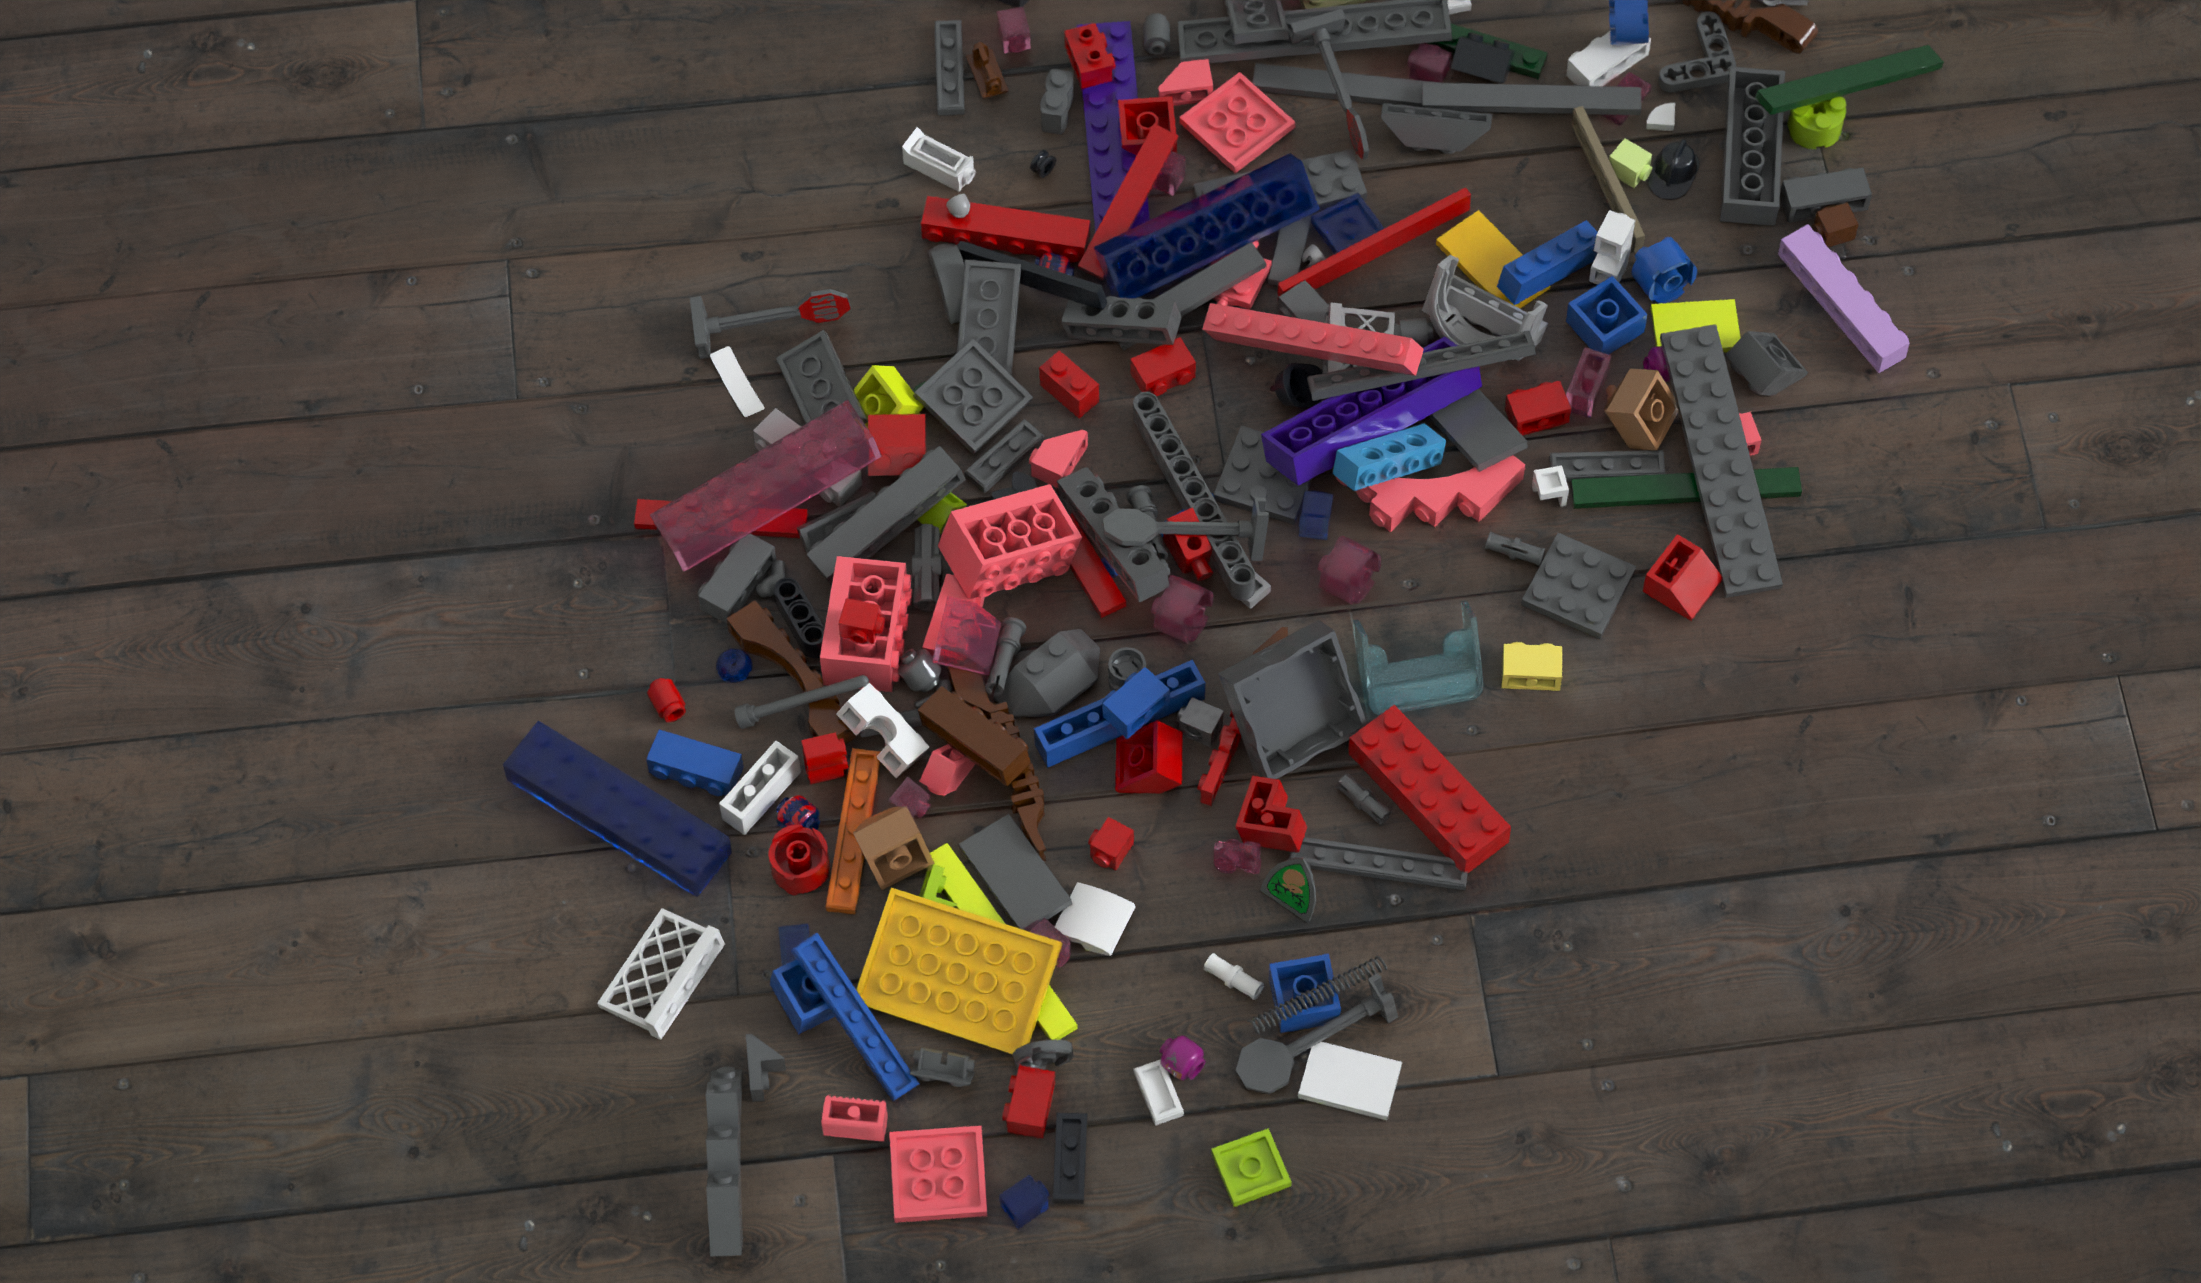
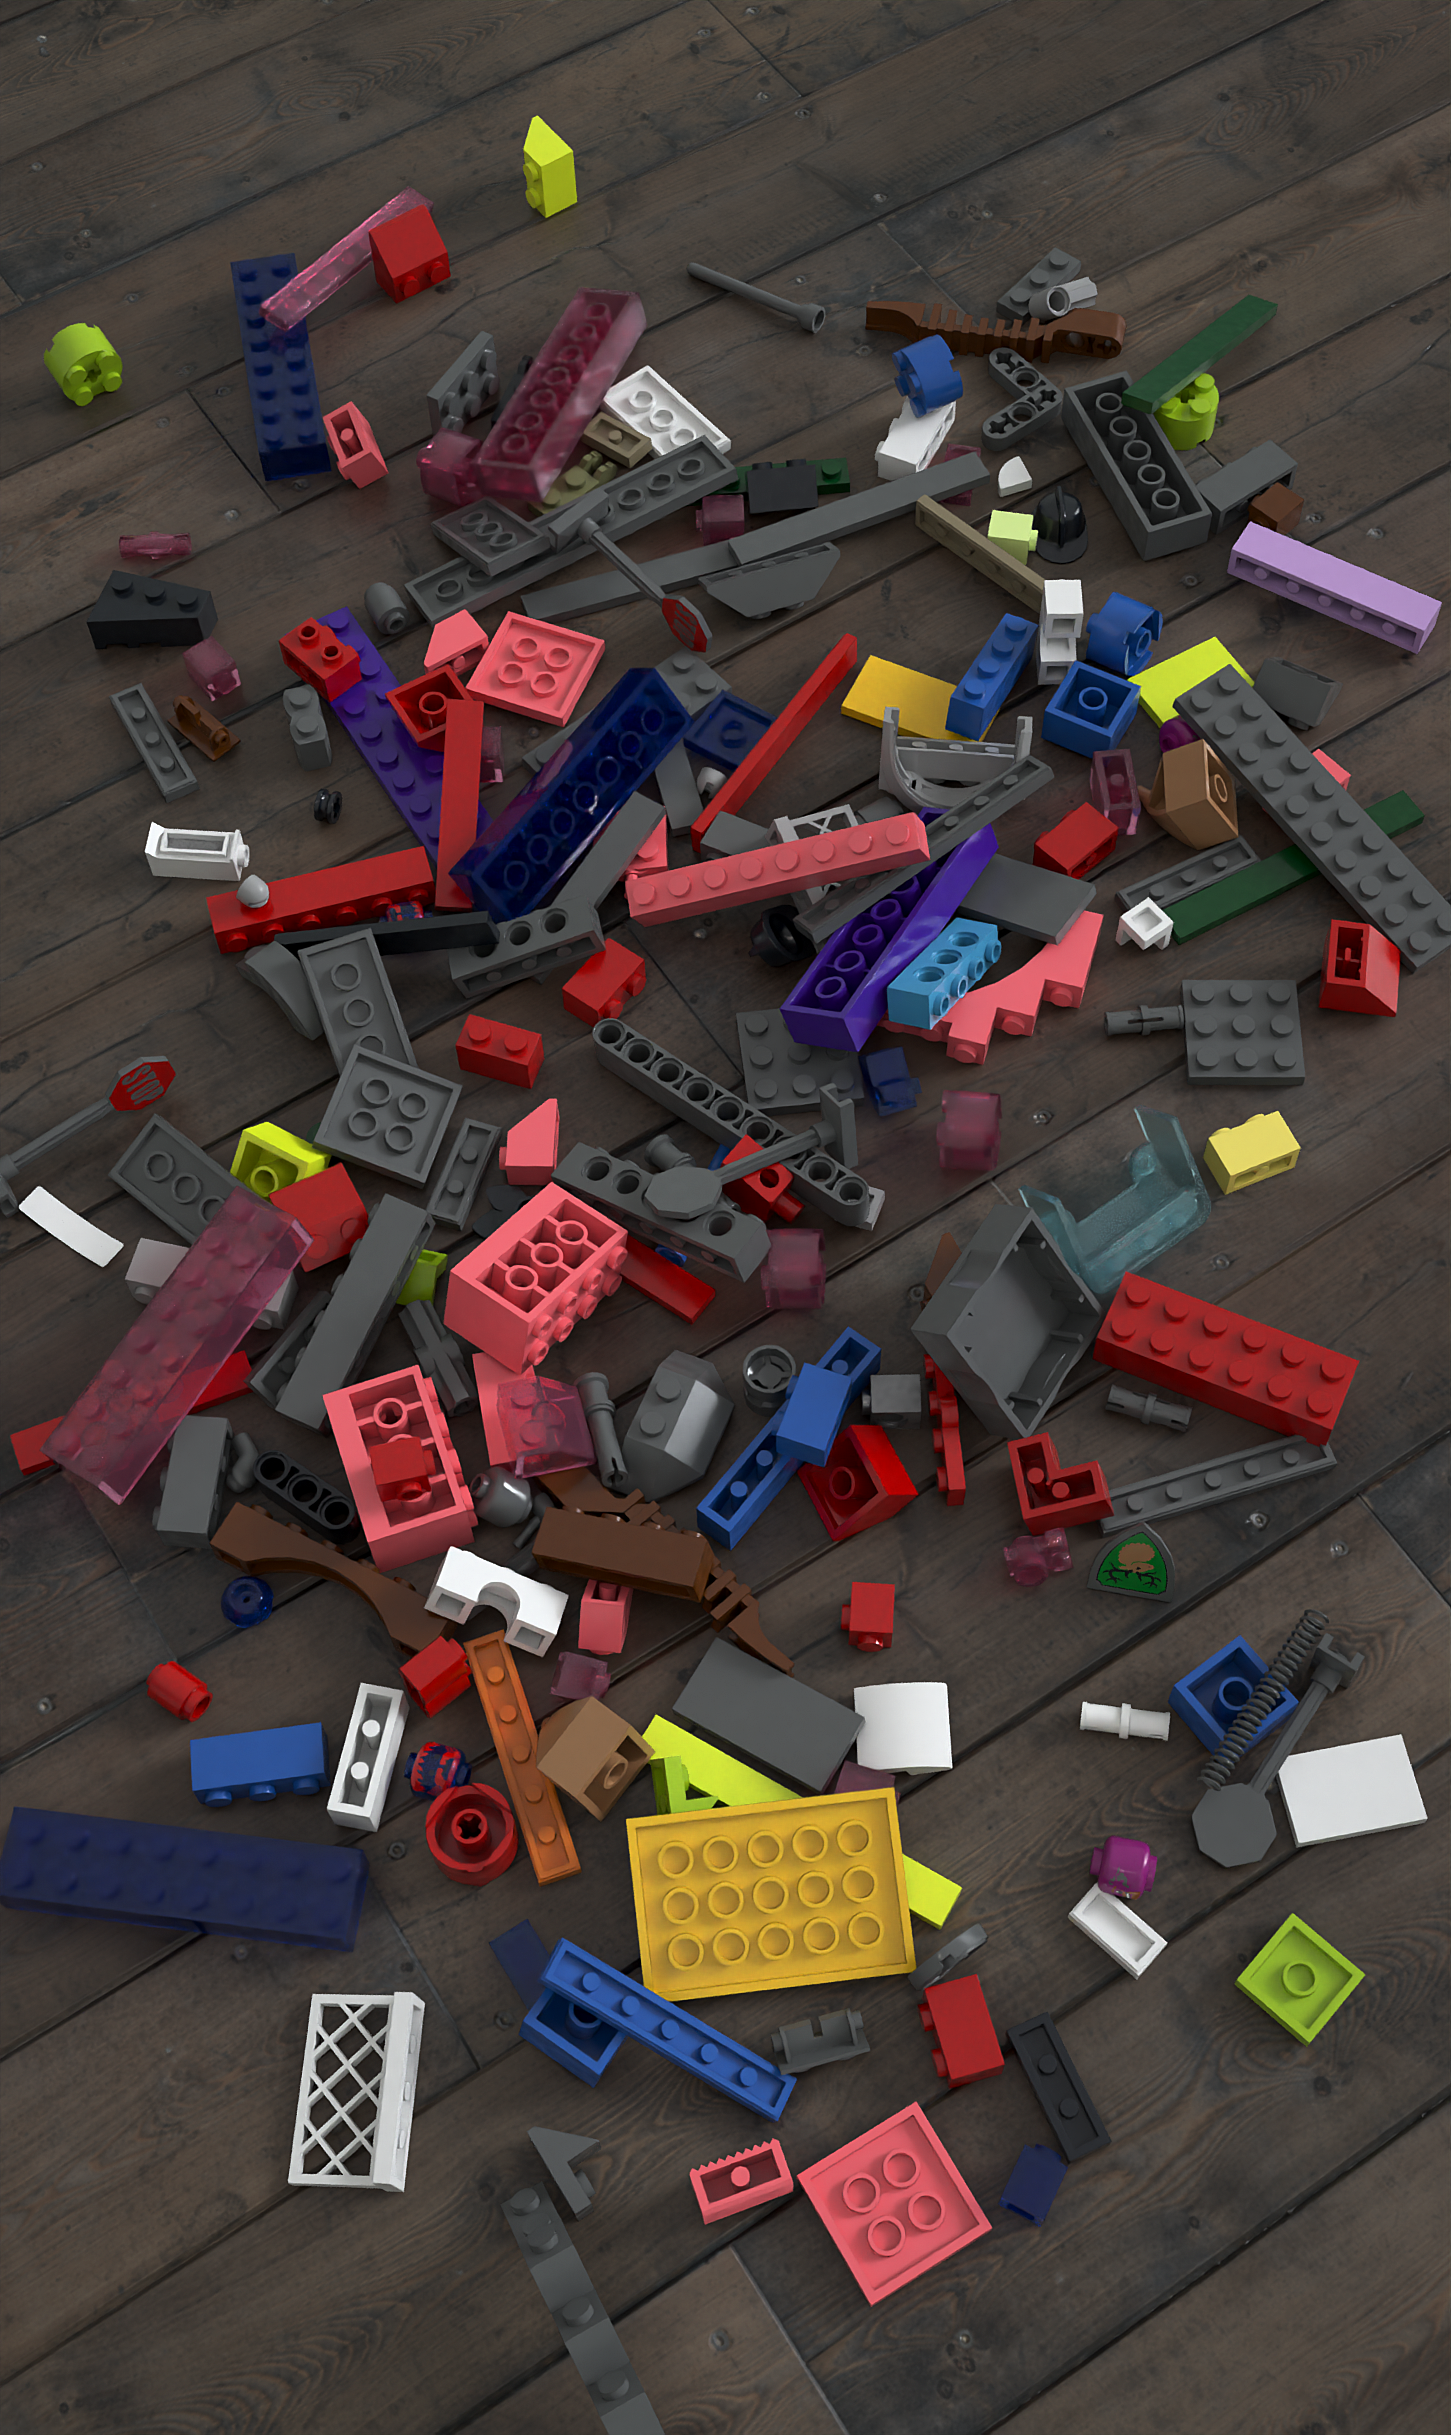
camera: 25 degrees left, 0 degrees up
(747, 714) = (300, 1661): dark grey piece -> none

